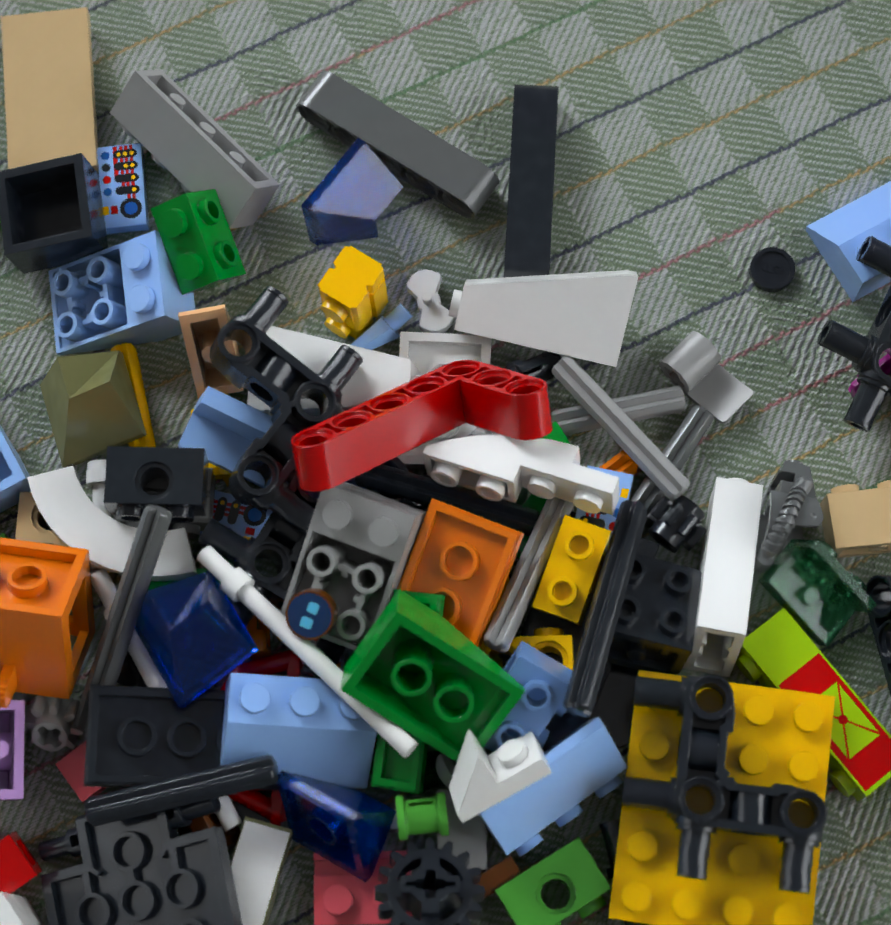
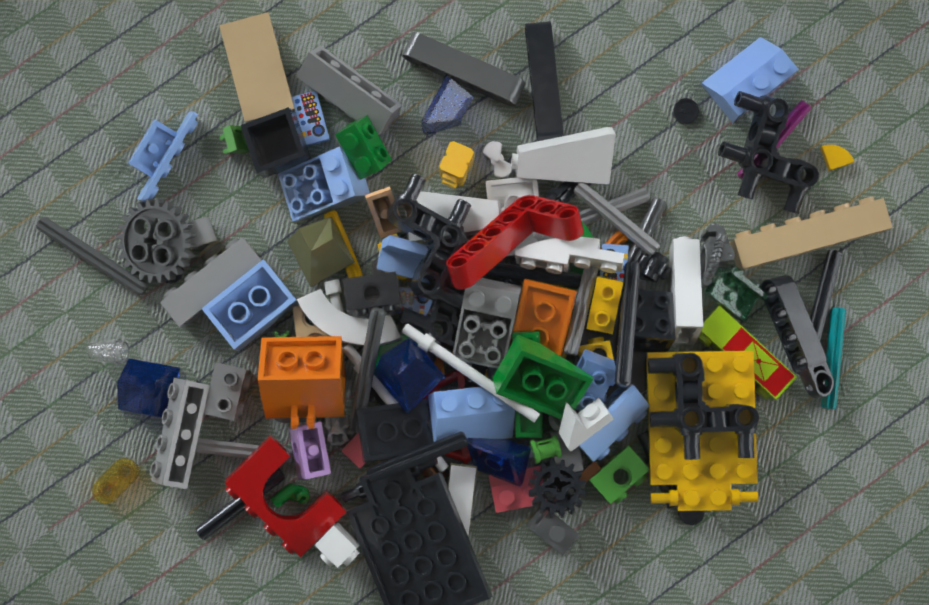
camera: 15 degrees left, 10 degrees up
(311, 614) = (471, 353): dark blue tile -> none
(383, 329) = (474, 181): light blue bar -> none
(704, 381) = (657, 181): light grey panel -> none

